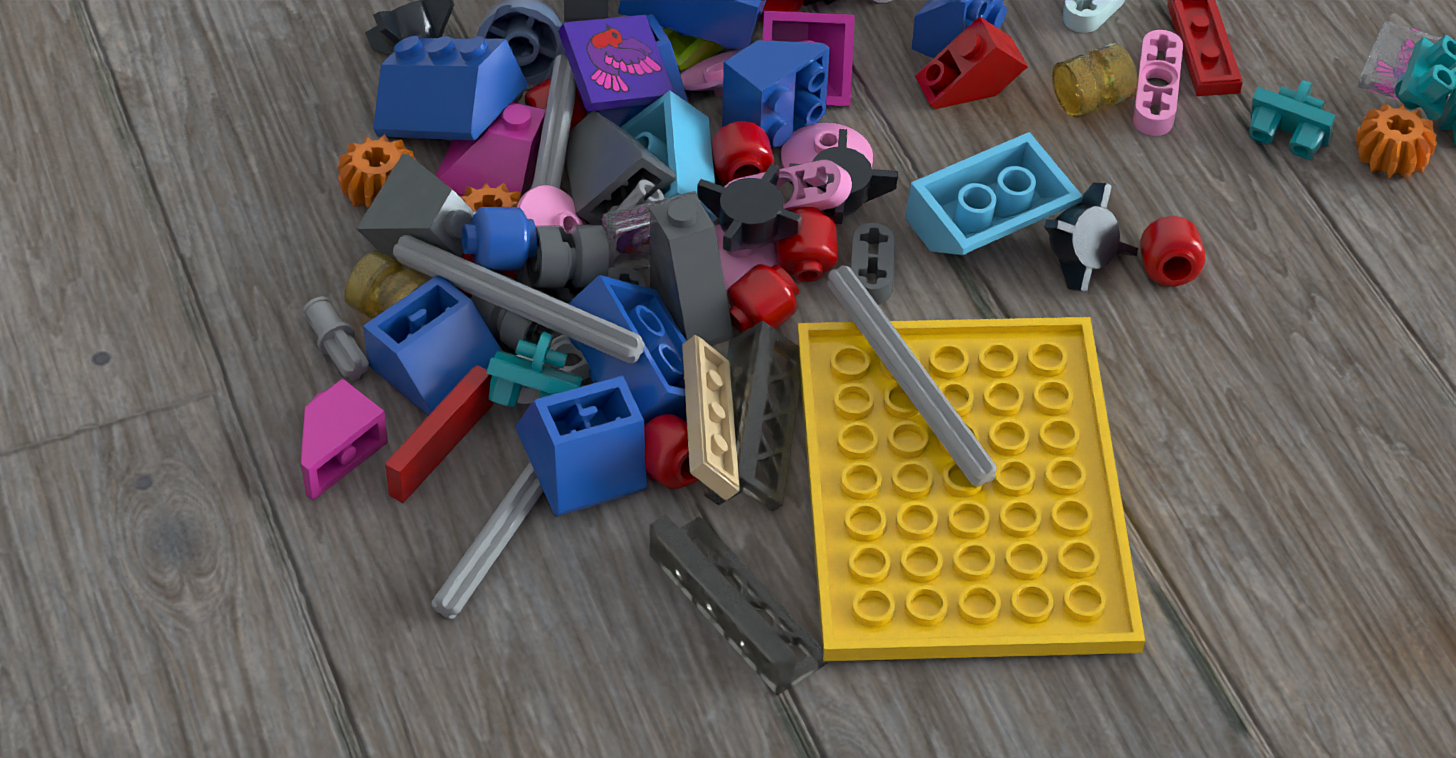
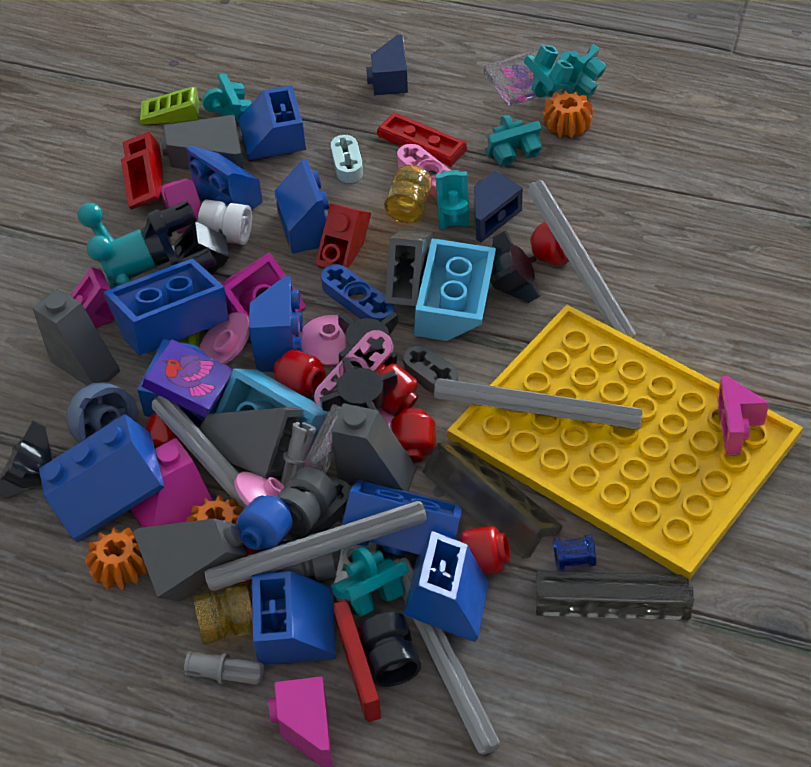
camera: 45 degrees left, 0 degrees up
(474, 449) = (389, 649): none -> black wheel
(710, 417) = (485, 513): tan tile -> none
(752, 532) = (574, 552): none -> clear blue bush
(900, 123) = (354, 284): none -> blue beam
(978, 124) = (406, 265): none -> dark grey slope
(1081, 551) = (737, 412): none -> dark pink slope
(1123, 118) = (452, 199): none -> teal hips
(1155, 284) = (579, 258): none -> light grey axle
(1166, 163) = (495, 204): none -> dark blue slope

